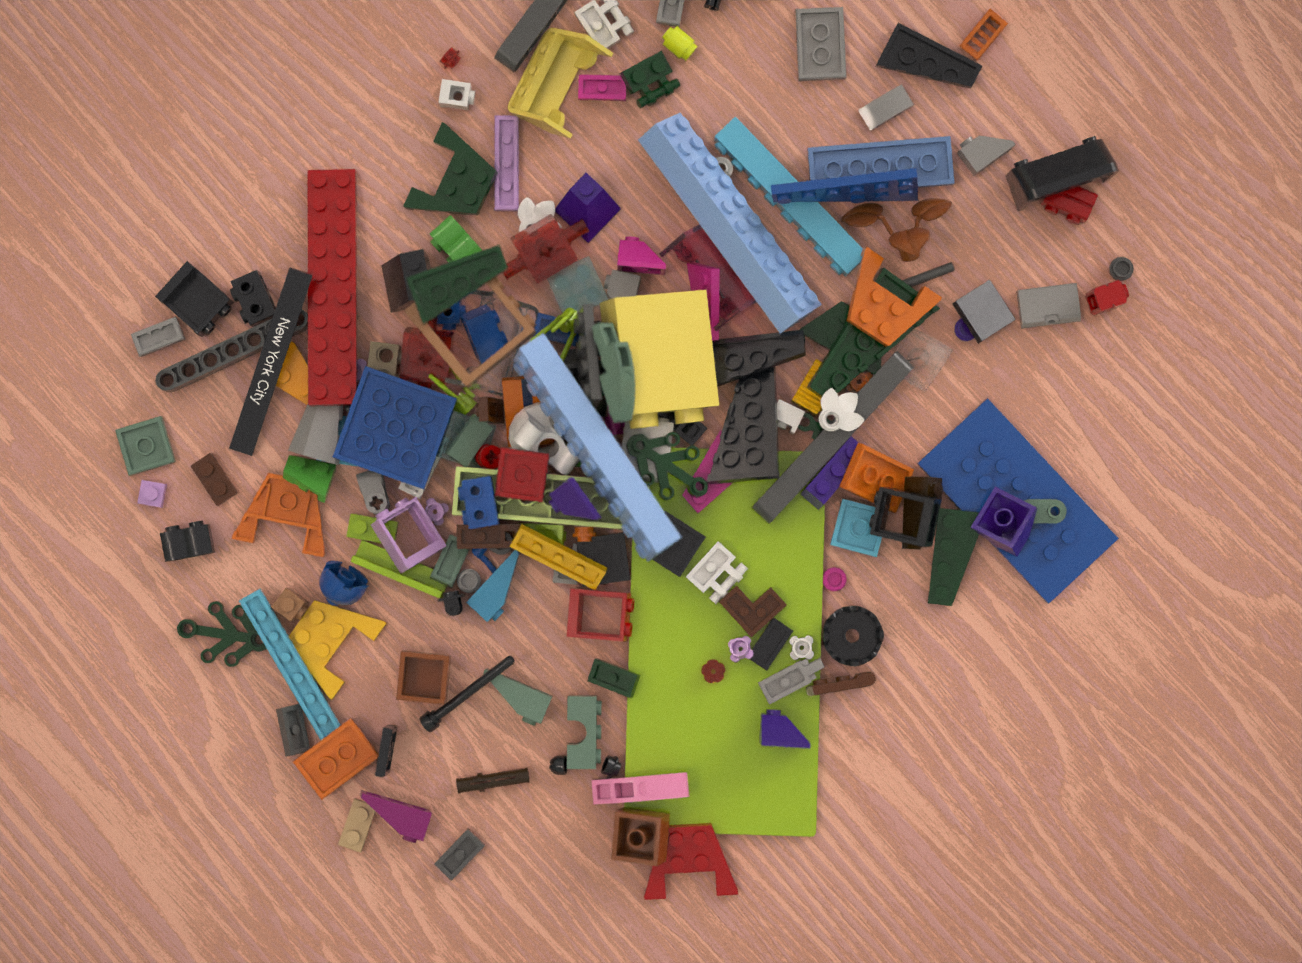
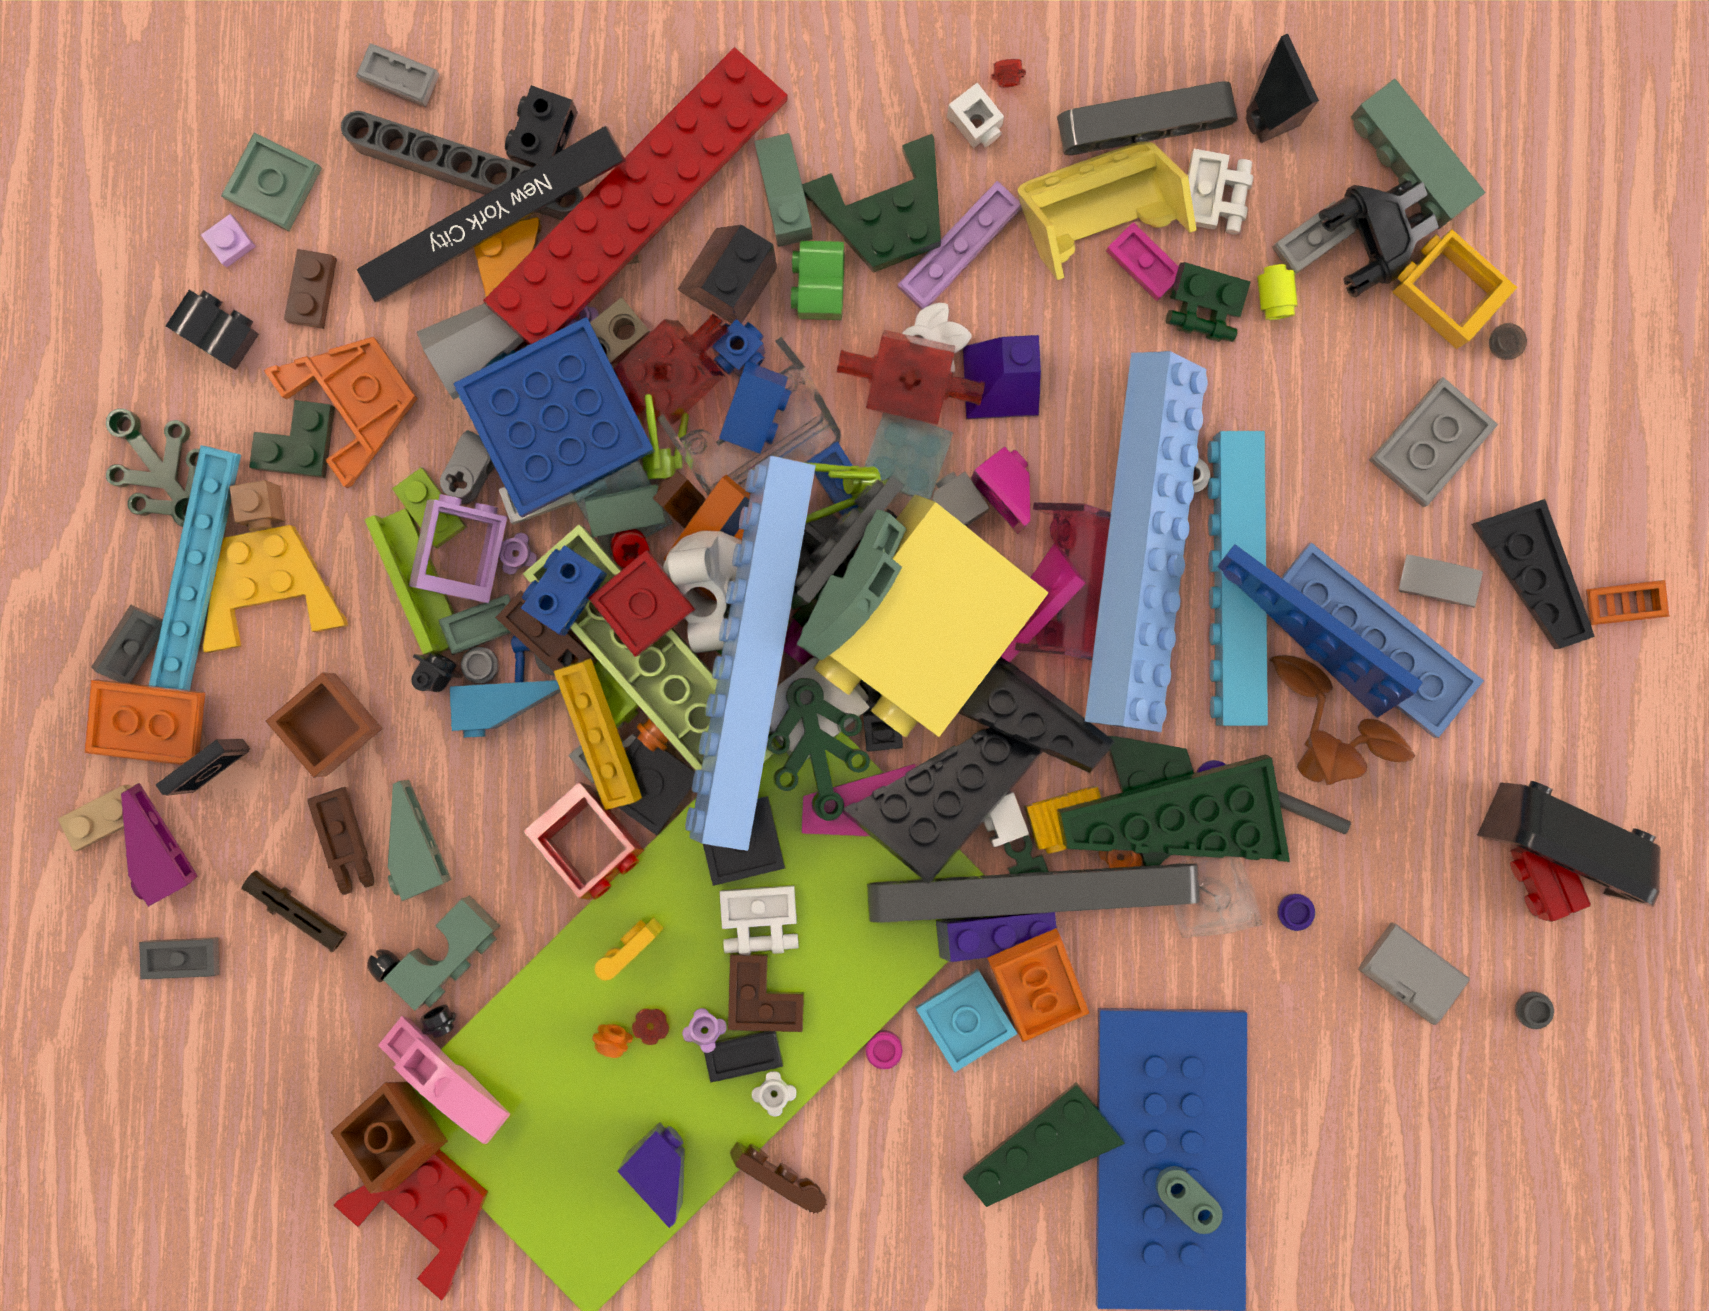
camera: 45 degrees right, 0 degrees up
(195, 299) = (477, 71): black panel -> none
(285, 559) = (304, 449): none -> dark green plate
(310, 475) = (414, 383): bright green wing -> none
(342, 585) = (335, 536): blue cylinder -> none
(396, 216) = (784, 190): none -> sand green slope
(431, 720) = (290, 779): black piece -> none
(452, 282) = (764, 307): dark green wing -> none
(470, 379) = (684, 372): medium nougat window -> none
(481, 724) = (340, 837): none -> reddish brown hinge
(572, 501) = (669, 691): dark purple slope -> none
(613, 678) = (533, 926): dark green plate -> none
(668, 634) = (634, 942): none -> yellow plate
(701, 694) = (611, 1040): none -> orange plate
(790, 679) = (727, 1118): light grey hinge -> none
(842, 408) = (1073, 873): white plate -> none
(869, 640) = (843, 1160): black plate -> none
(879, 310) = (1221, 803): orange wing -> none
(913, 509) = (1058, 1062): dark brown slope -> none
(927, 523) = (1051, 1096): black window -> none
(982, 152) = (1503, 732): light grey slope -> none
(983, 311) = (1335, 912): tile -> none
(1005, 521) = (1138, 1174): dark purple slope -> none
(1107, 297) = (1492, 1030): red brick -> none

